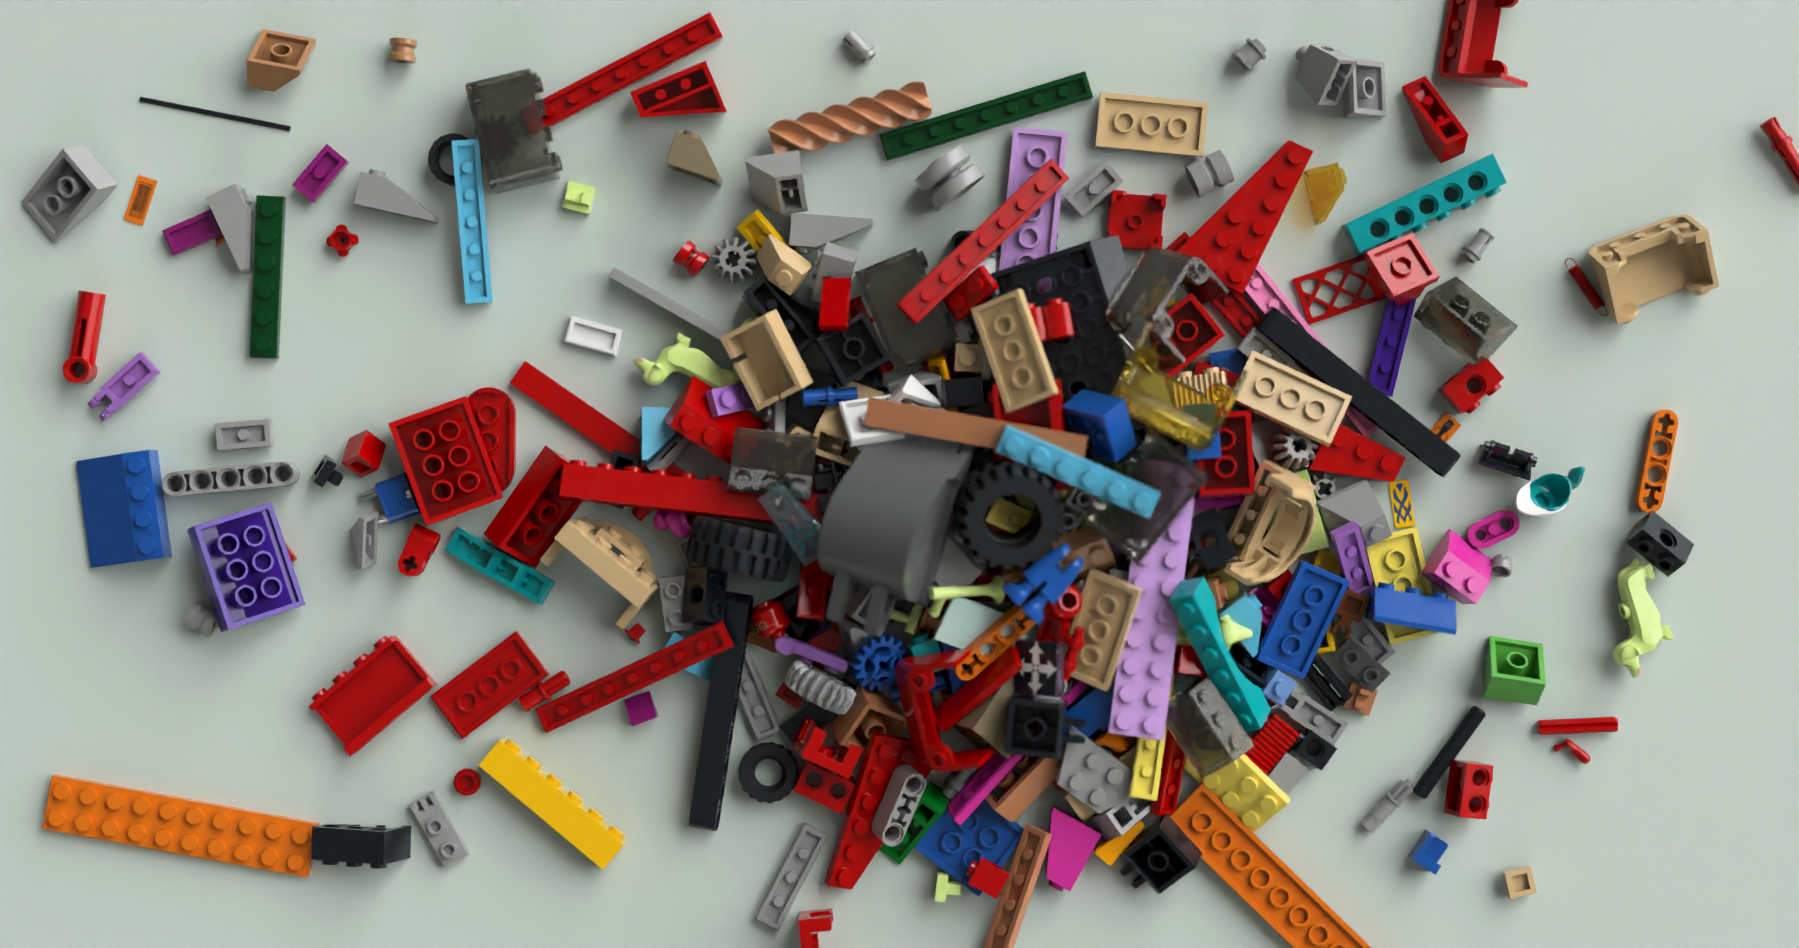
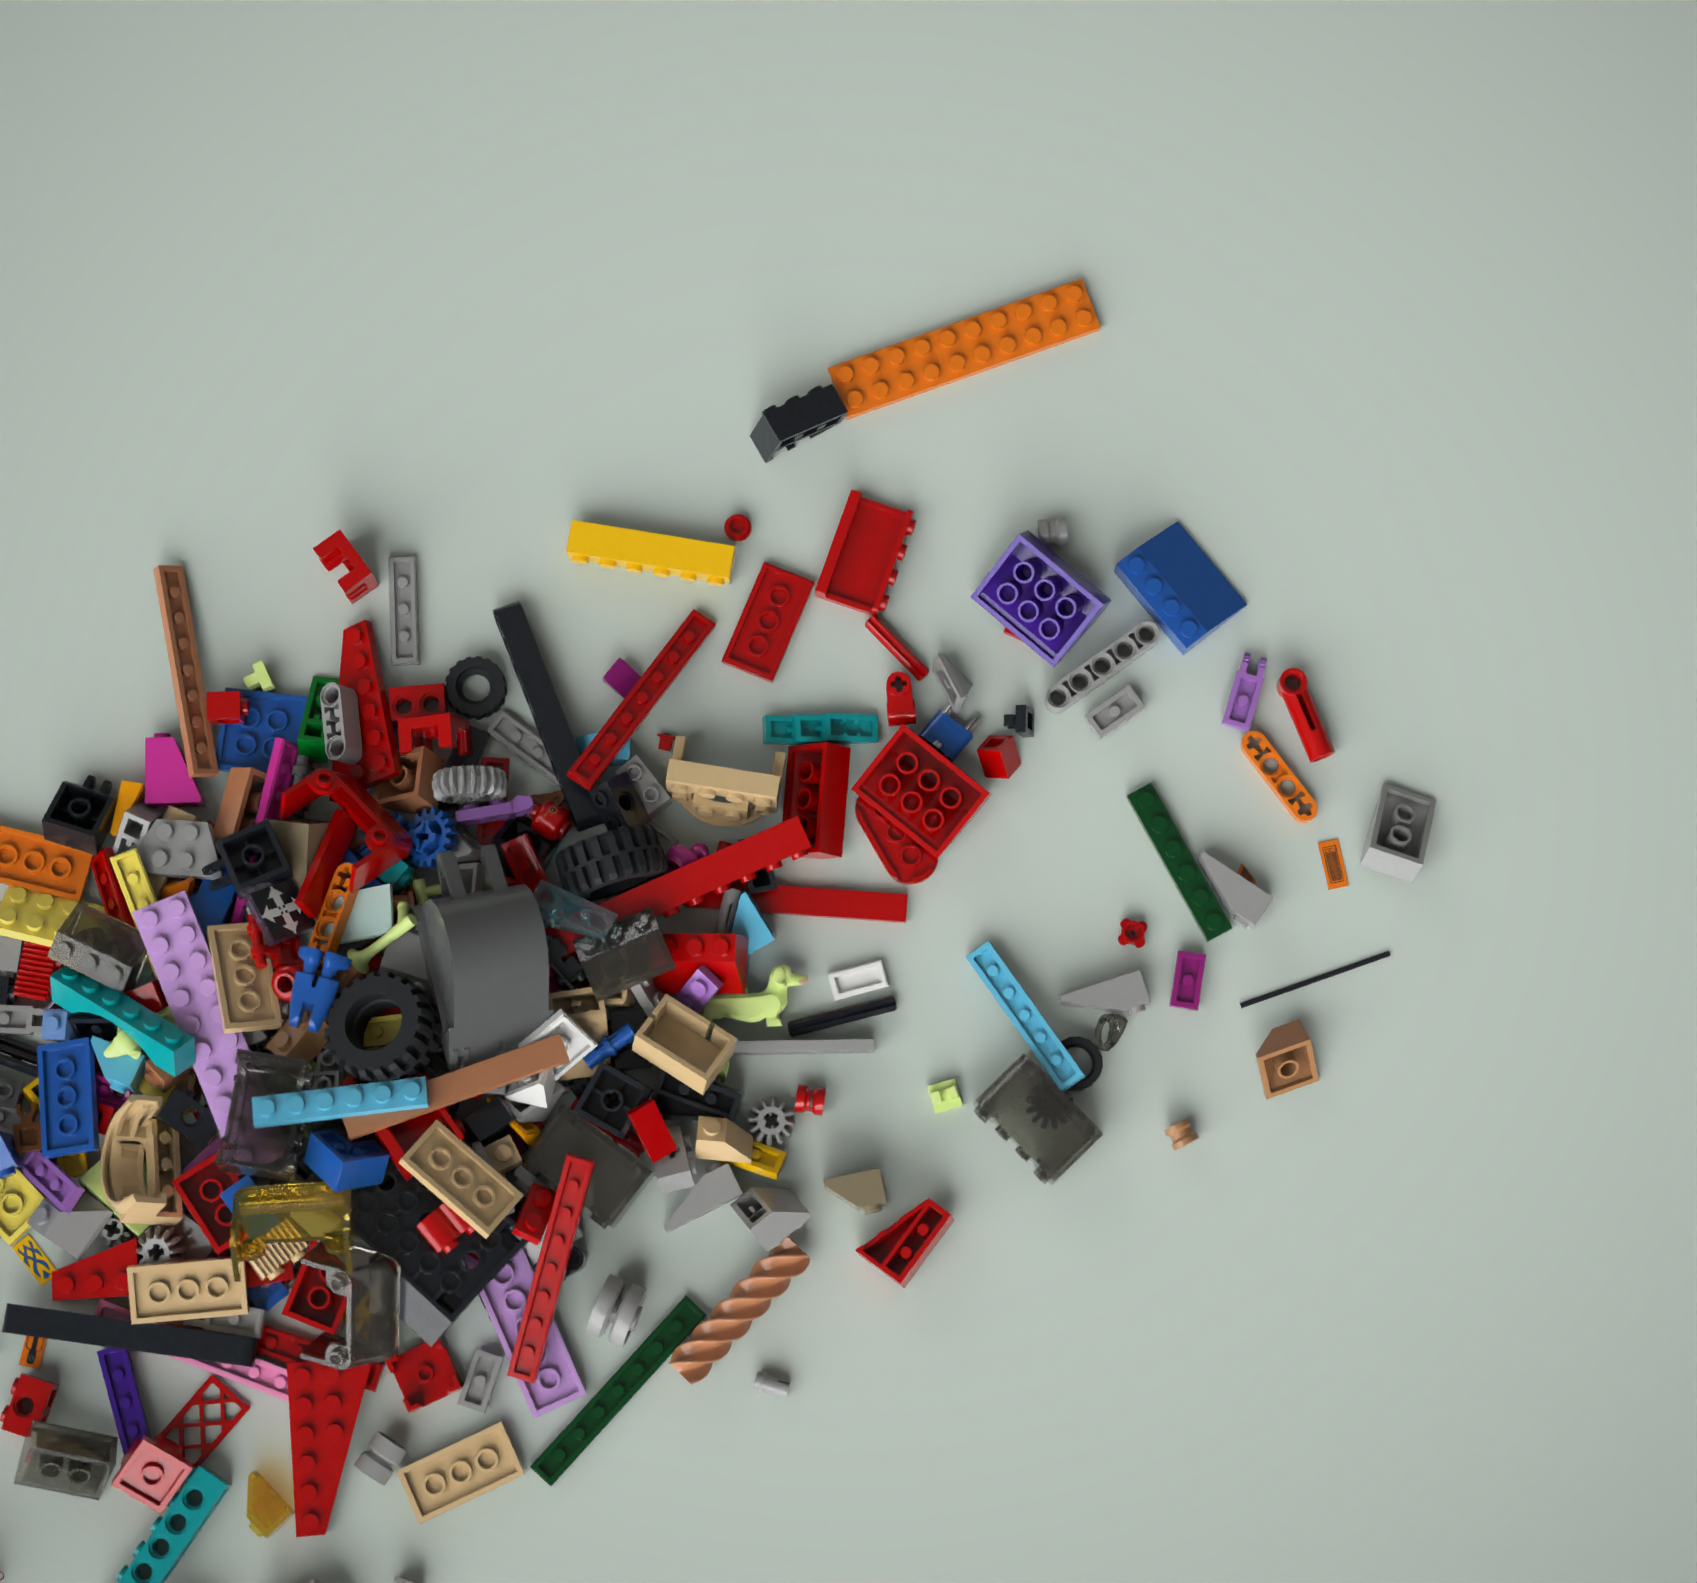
camera: 150 degrees right, 10 degrees down
(145, 298) = (1282, 774): none -> orange beam
(192, 232) = (1269, 862): magenta tile -> none
(394, 598) = (897, 648): none -> red axle
(401, 171) = (1117, 1025): none -> clear smoke piece
(439, 829) = (737, 473): light grey hinge -> none
(544, 690) = (716, 644): red axle -> none
(624, 313) = (842, 1016): none -> black axle
(631, 69) = (967, 1241): red tile -> none
(1477, 246) = (93, 1539): light grey pin -> none

